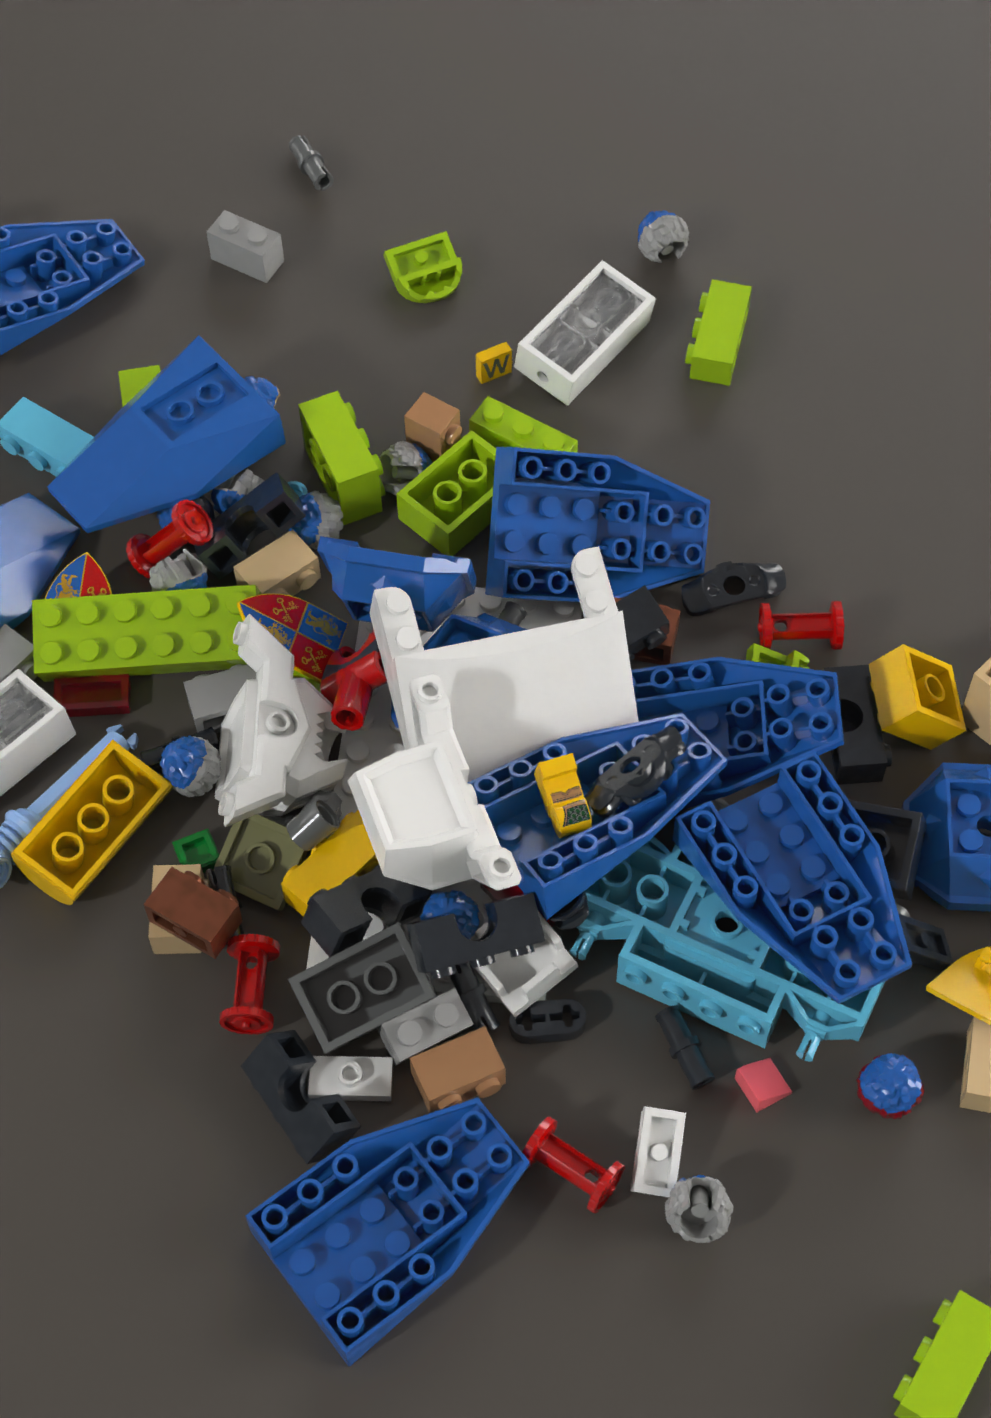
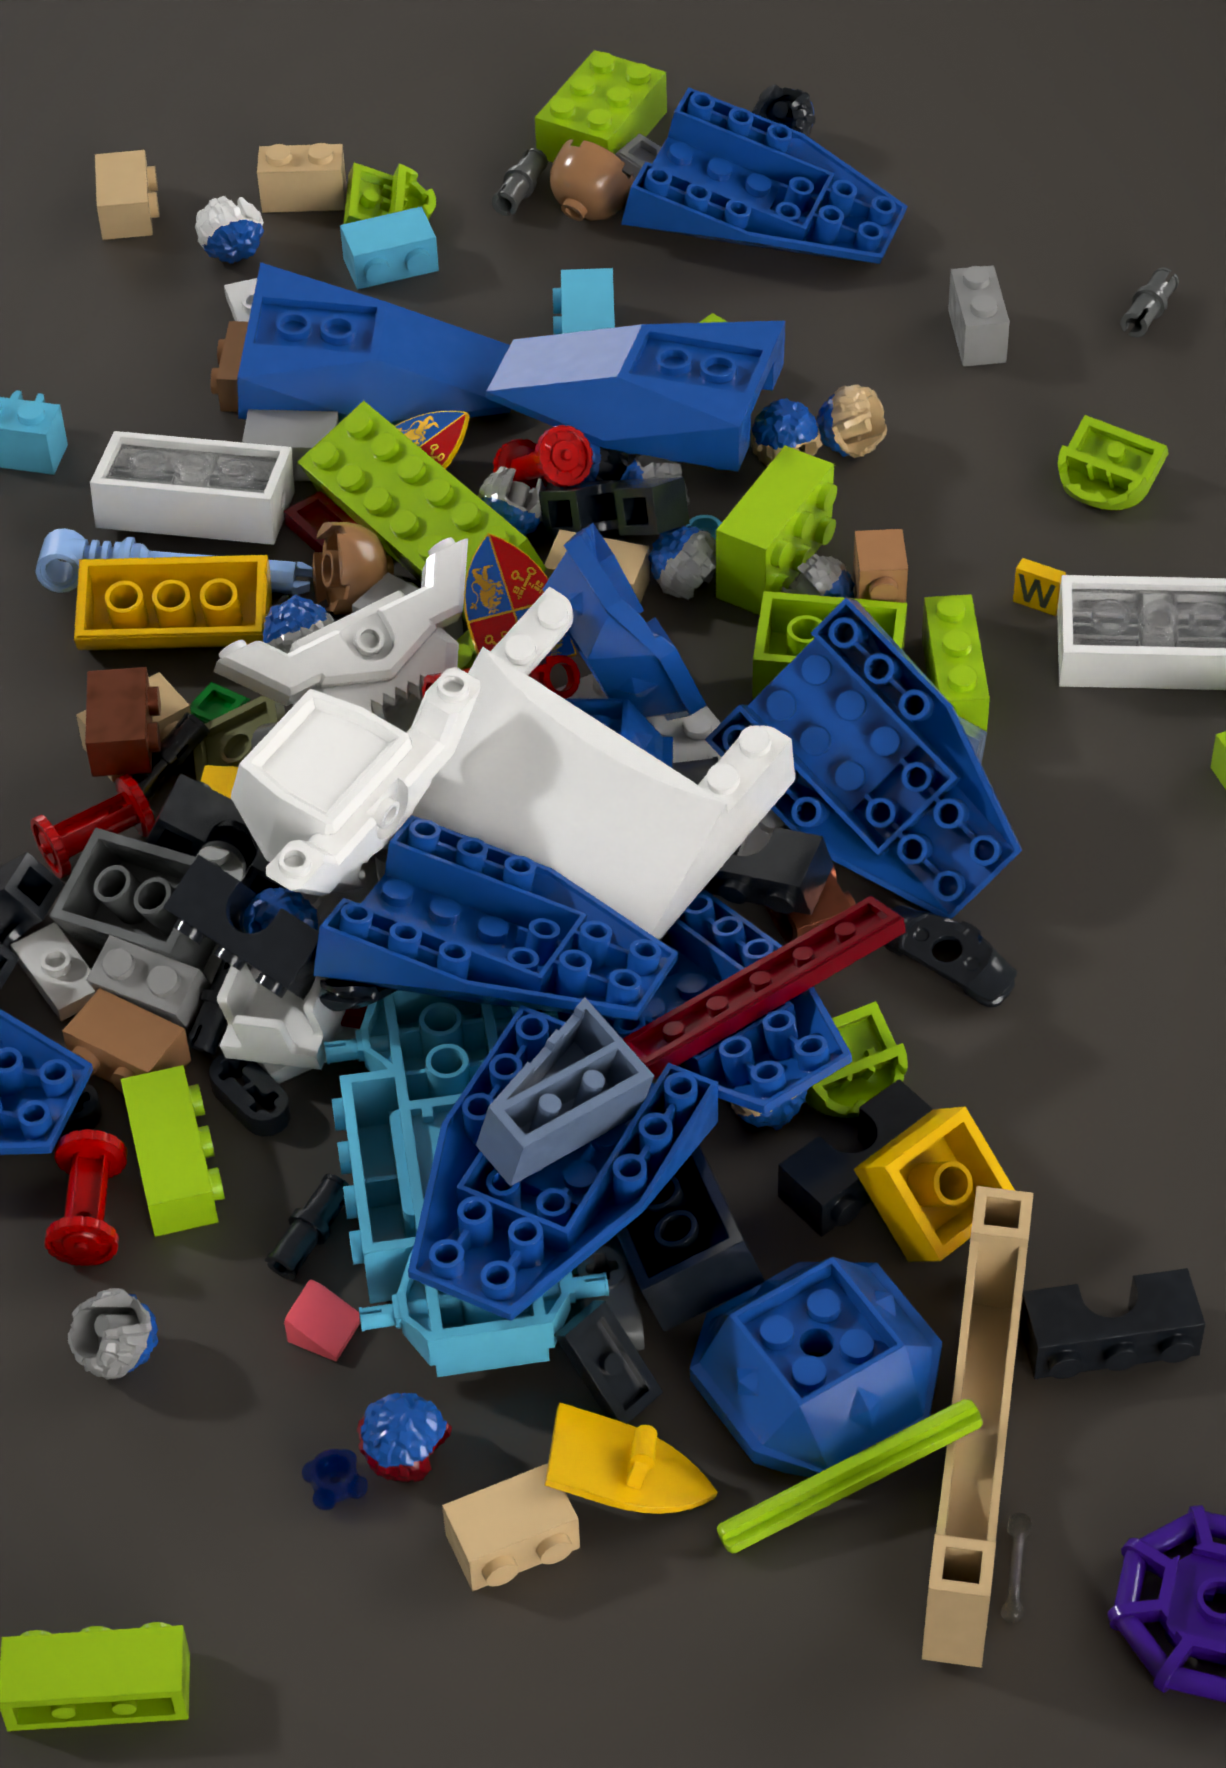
camera: 55 degrees right, 10 degrees down
(152, 704) = (349, 565): none -> medium nougat cylinder
(277, 362) = (852, 421): none -> tan piece
(563, 795) = (464, 892): yellow leg -> none
(566, 1092) = (172, 1150): none -> lime brick
(655, 767) = (545, 939): black piece -> none
(658, 1151) = (159, 1260): white plate -> none
(738, 690) = (765, 985): none -> dark red tile
(778, 835) = (565, 1097): none -> sand blue wedge
(802, 625) = (974, 1062): red hose -> none
(885, 1132) = (329, 1465): none -> clear blue plate

